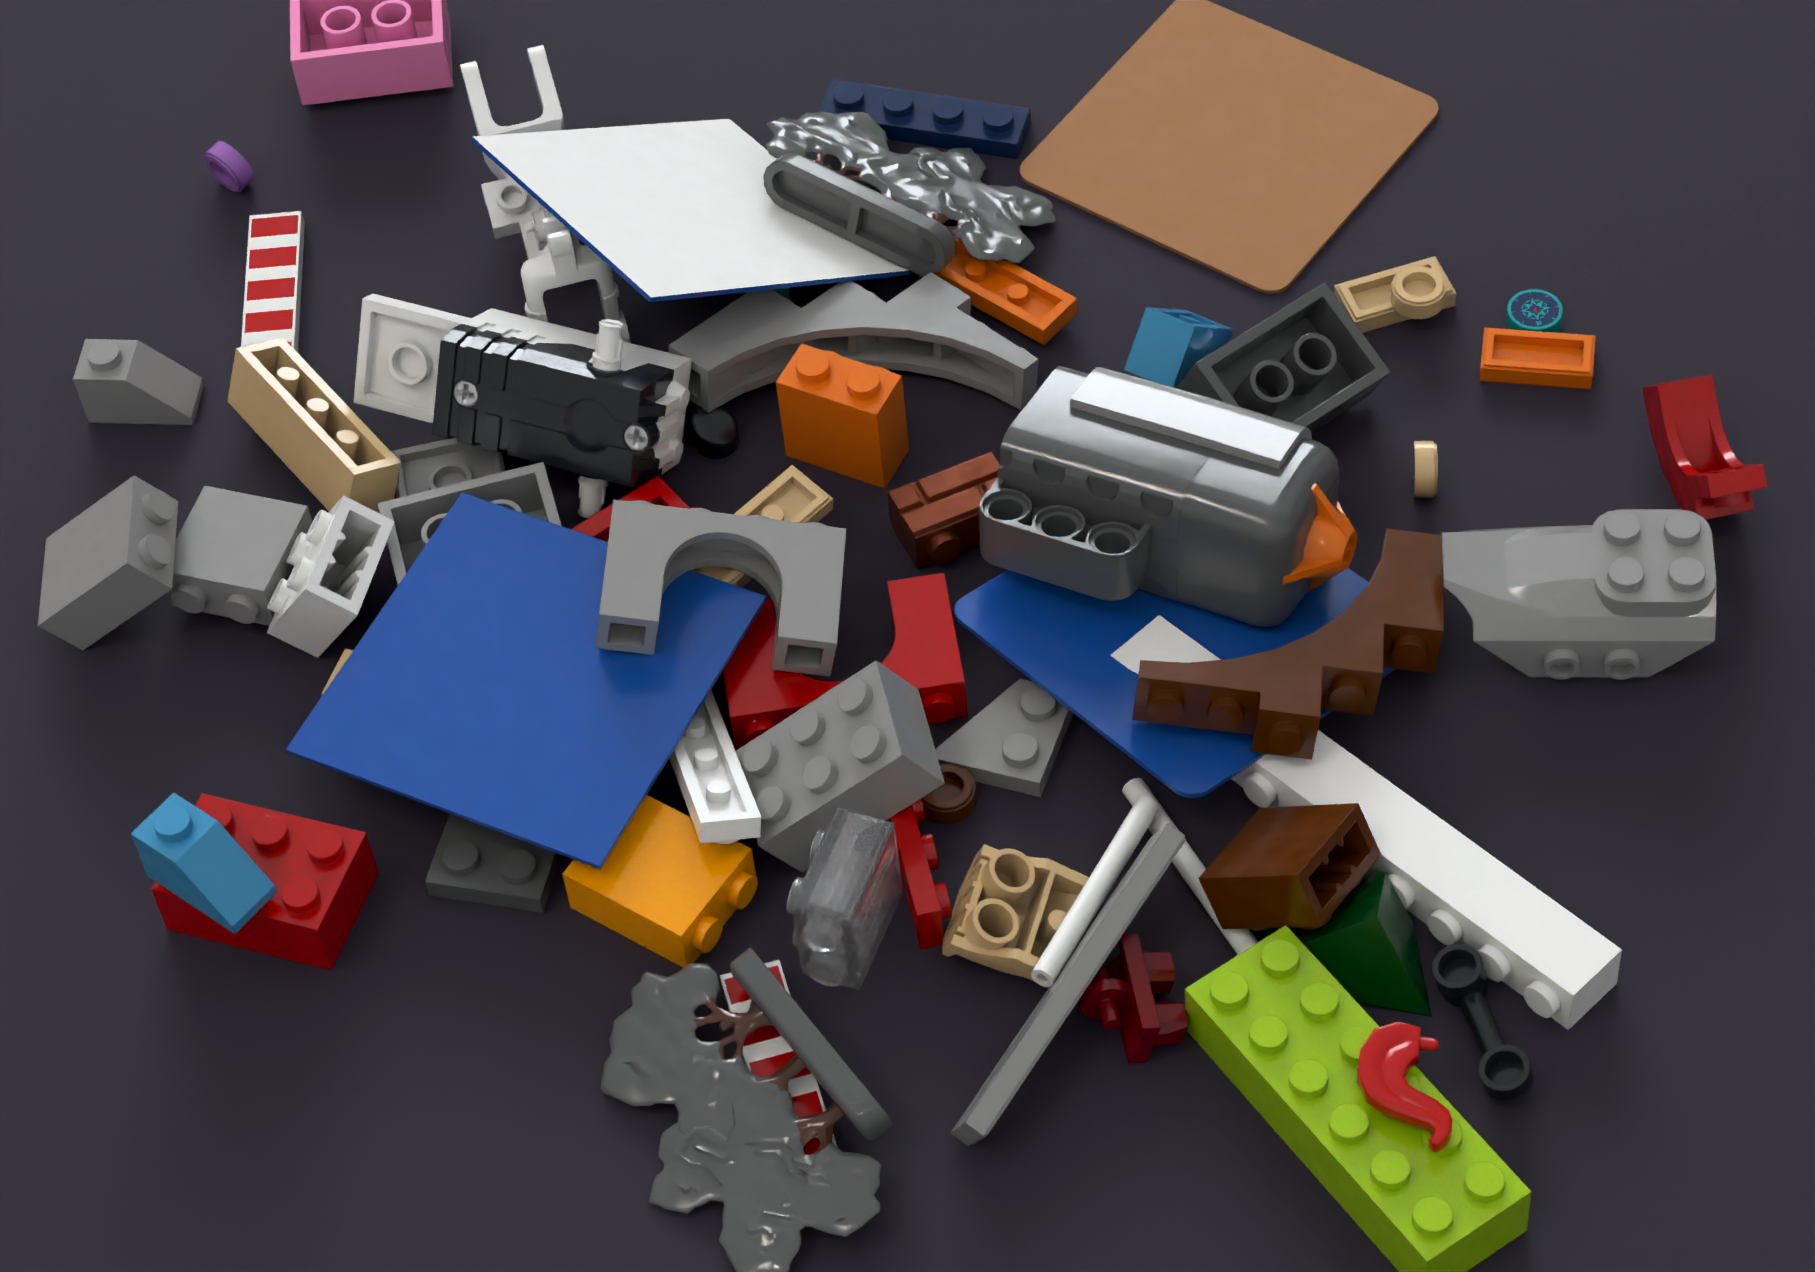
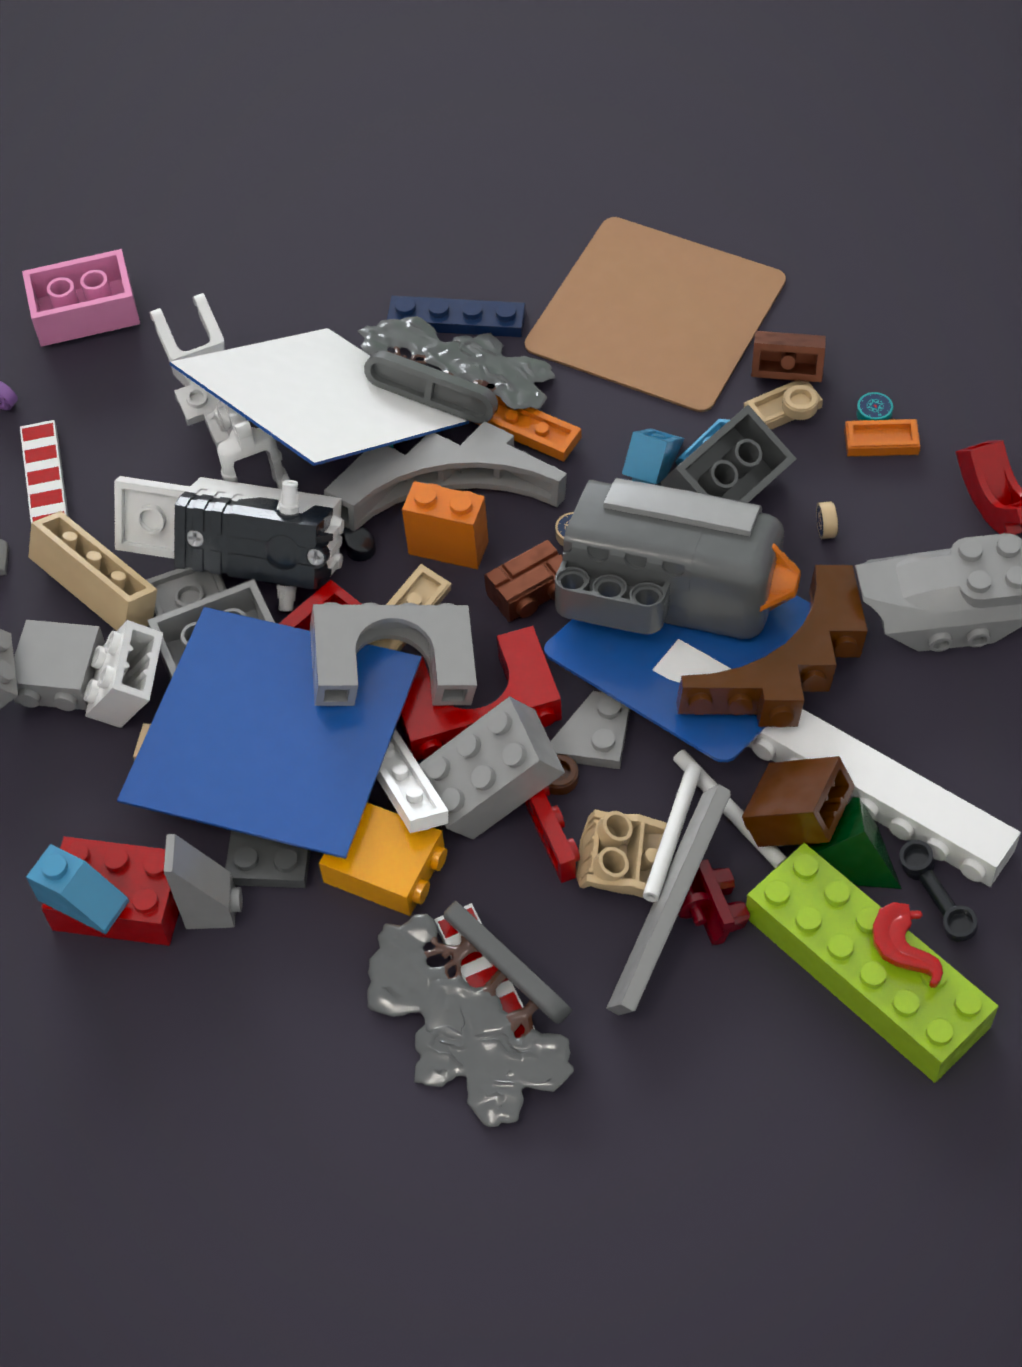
camera: 10 degrees left, 5 degrees up
(382, 884) = (200, 887): none -> light grey slope
(846, 898) = (511, 858): clear brick -> none
(1413, 223) = (788, 356): none -> copper brick

